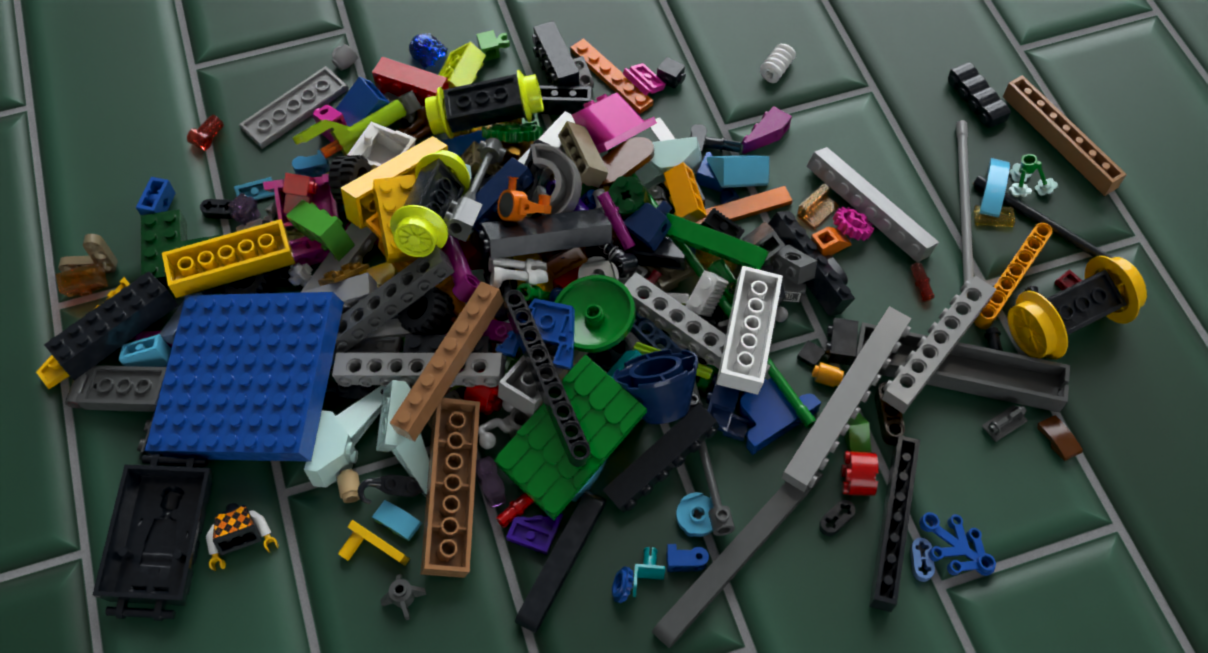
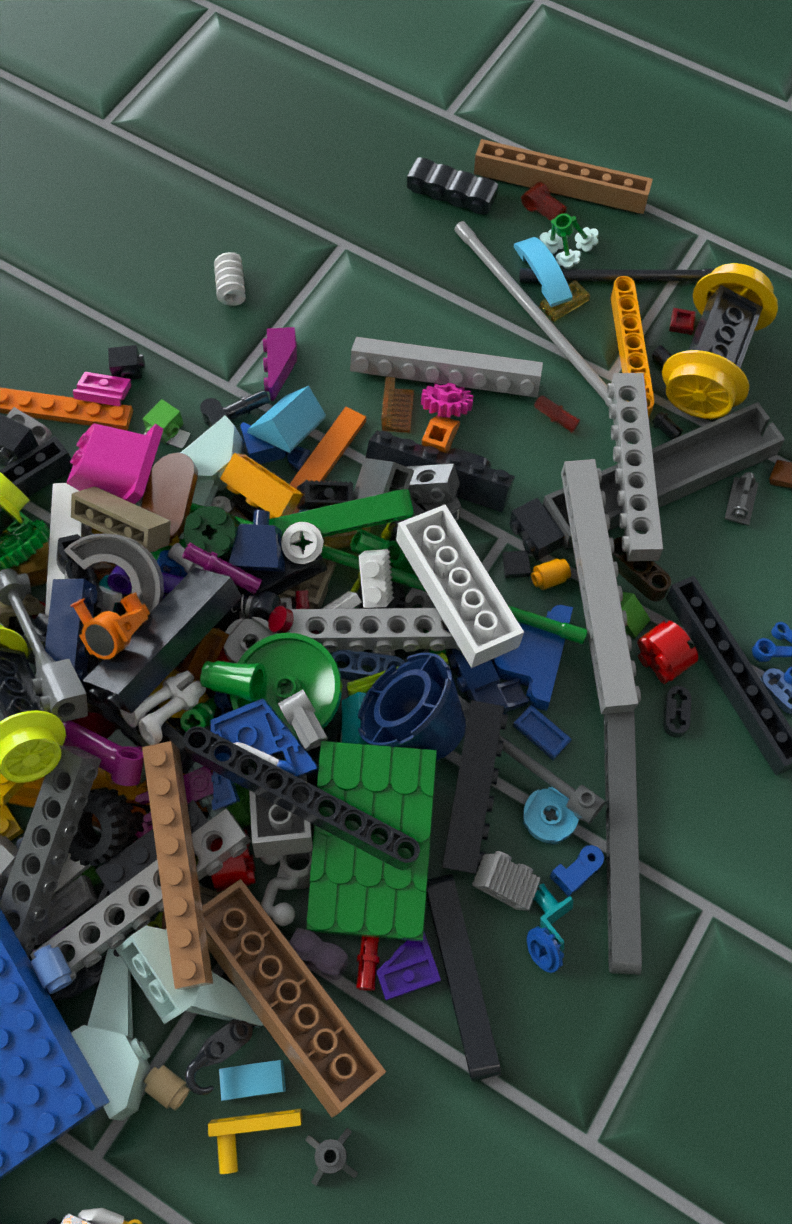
camera: 40 degrees left, 5 degrees up
(339, 366) = (51, 968): none -> medium blue brick
(552, 352) = (281, 764): none -> white piece
(567, 285) = (234, 679): none -> green plant
(586, 330) = (301, 716): none -> light grey piece
(625, 274) = (280, 620): none -> dark red tile
(634, 527) = (507, 881): none -> light grey brick
(665, 120) = (166, 417): none -> bright green brick
(677, 231) = (293, 535): none -> white gear
(737, 464) = (542, 732): none -> blue tile
(1034, 140) = (539, 199): none -> clear red piece

